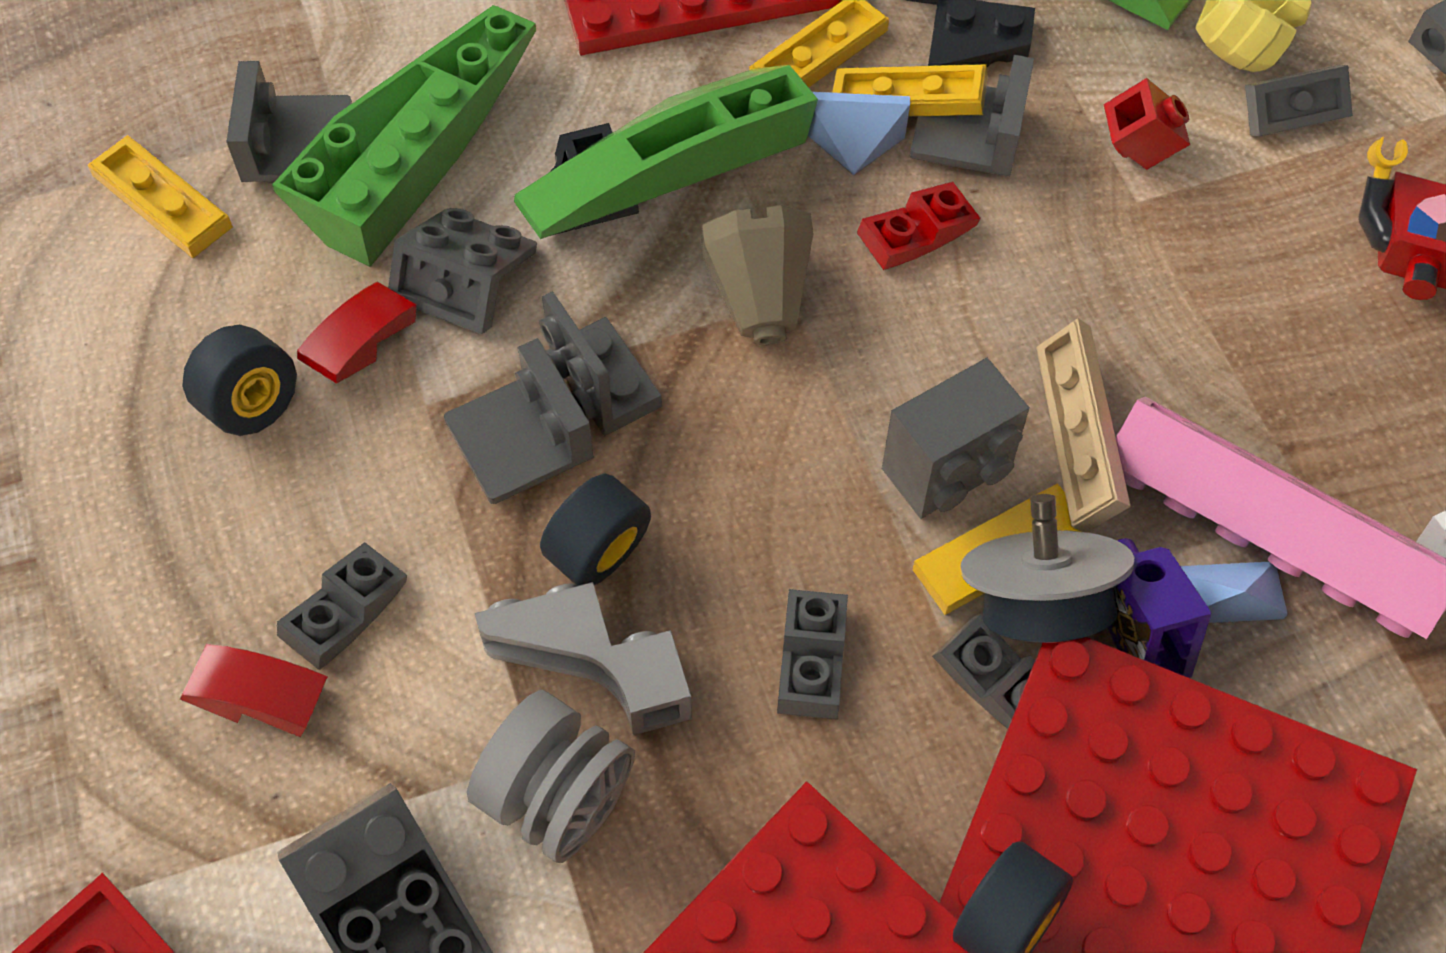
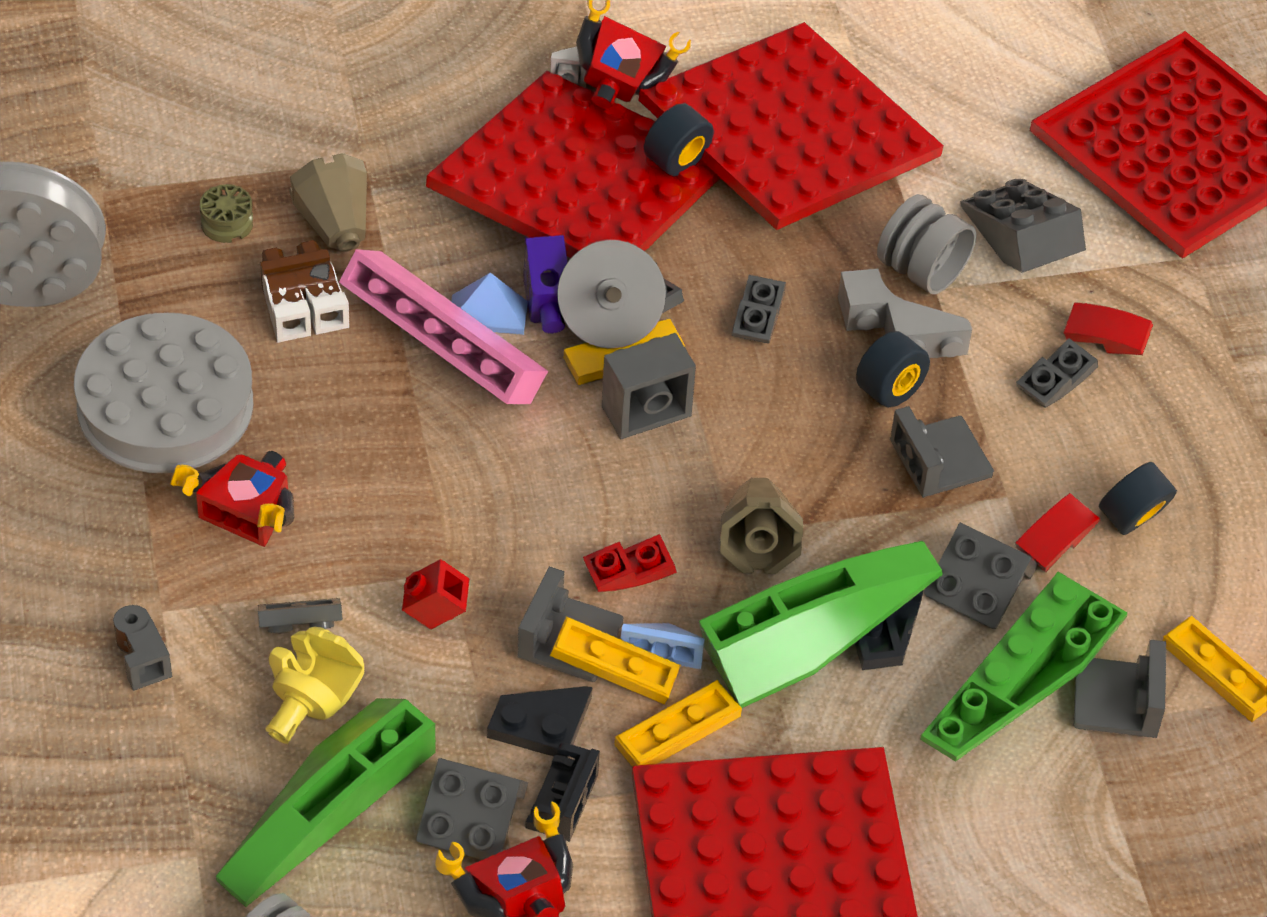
camera: 175 degrees left, 10 degrees down
(598, 368) = (887, 482): dark grey bracket -> none
(1082, 427) = (555, 397): tan tile -> none

